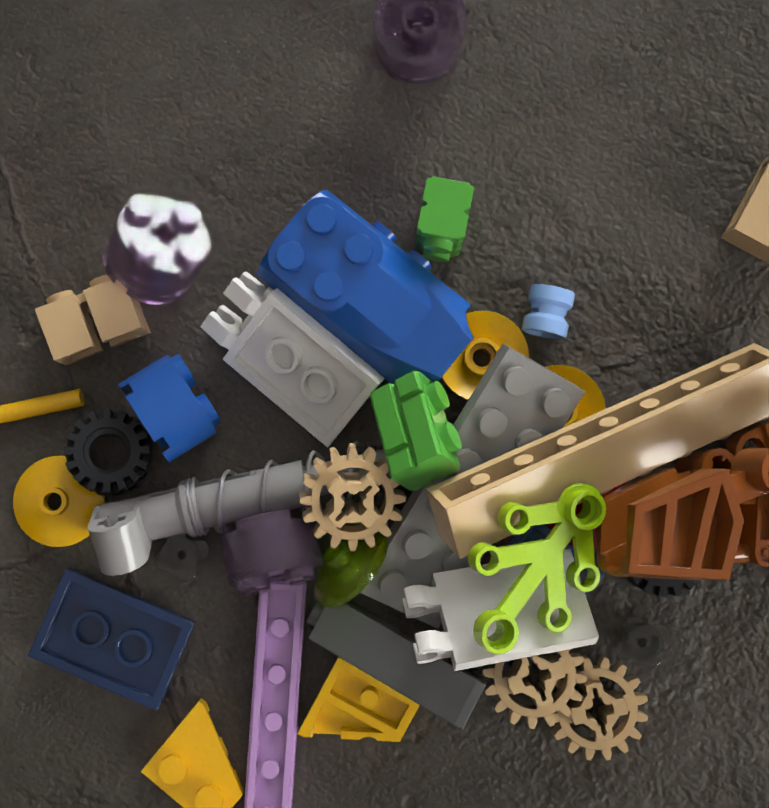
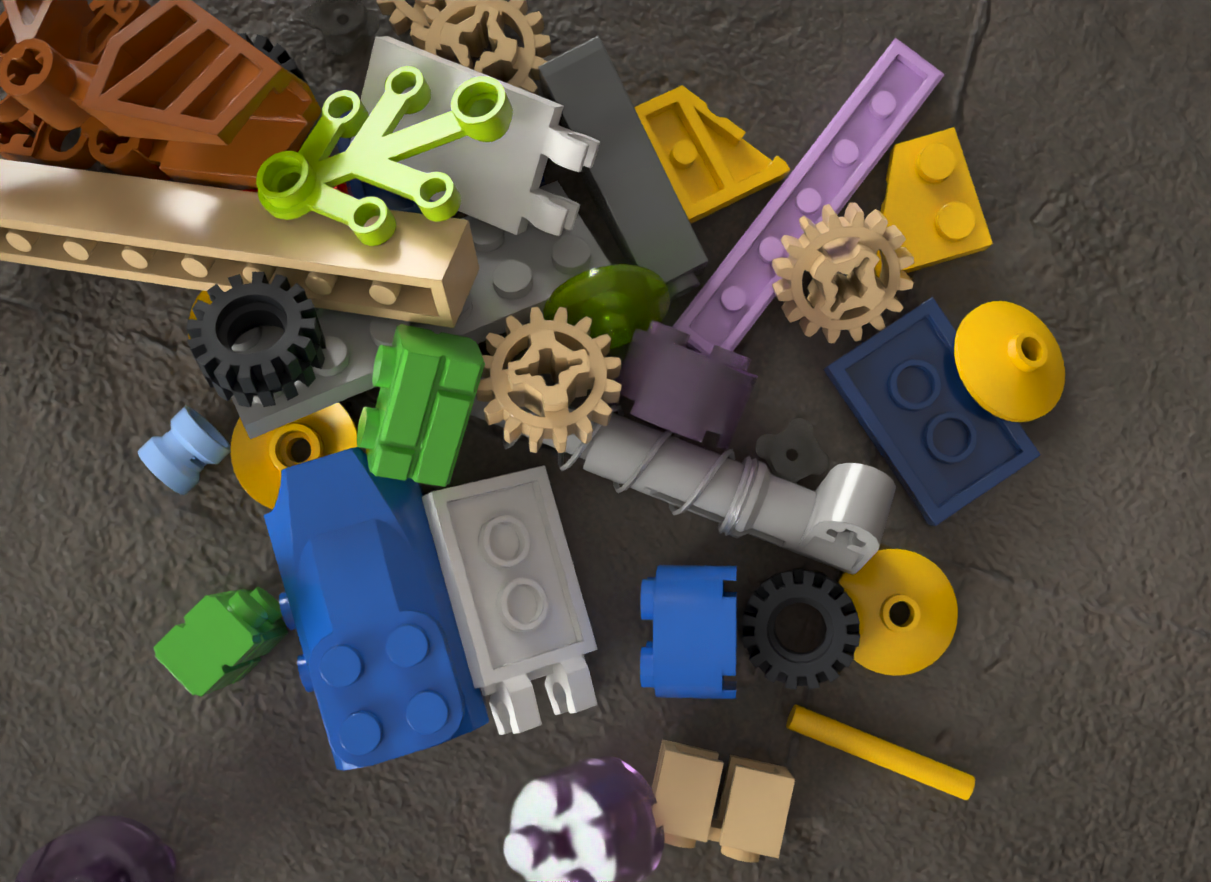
camera: 150 degrees left, 0 degrees up
(83, 702) = (1009, 361): none -> yellow dish
(224, 691) = (849, 247): none -> tan gear
(557, 417) = (250, 307): none -> black tyre

